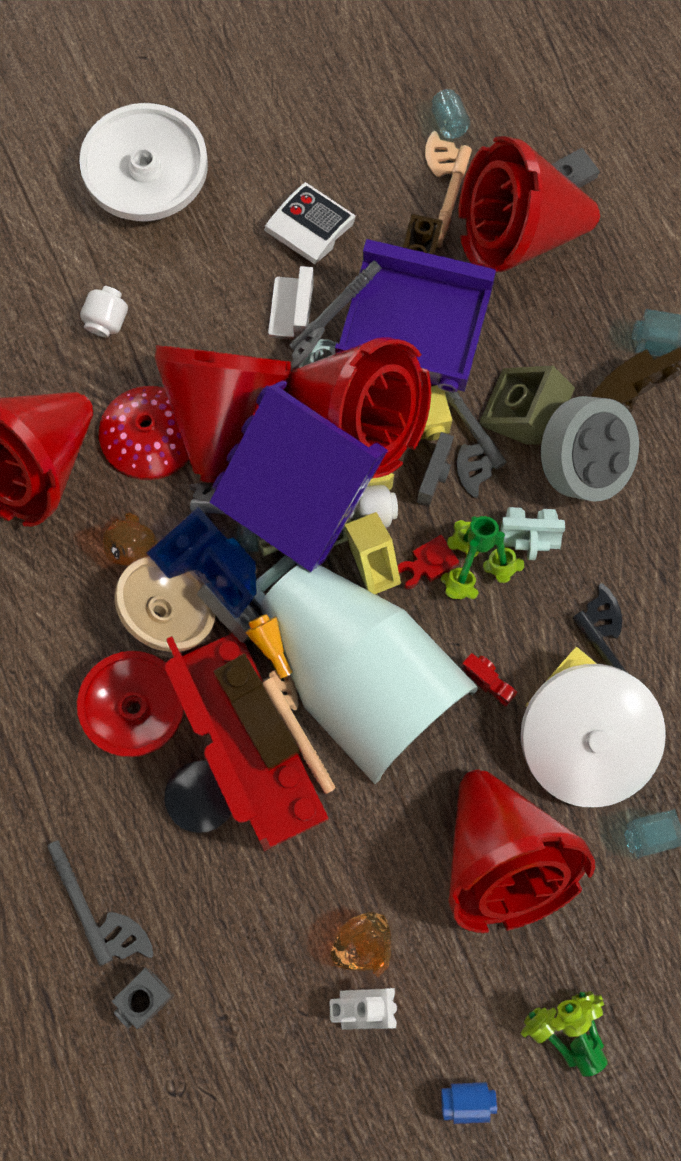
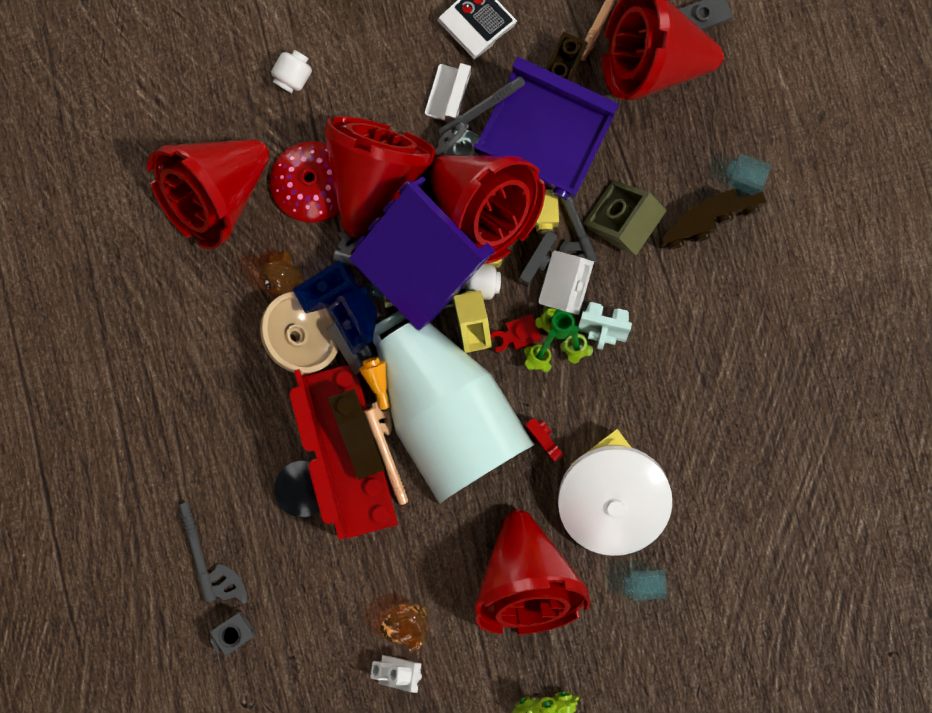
camera: 10 degrees right, 10 degrees up
(109, 692) = (240, 405): red dish -> none
(474, 487) = (566, 282): none -> white panel
(590, 448) = (665, 268): wheel -> none
(594, 634) = (636, 418): black piece -> none

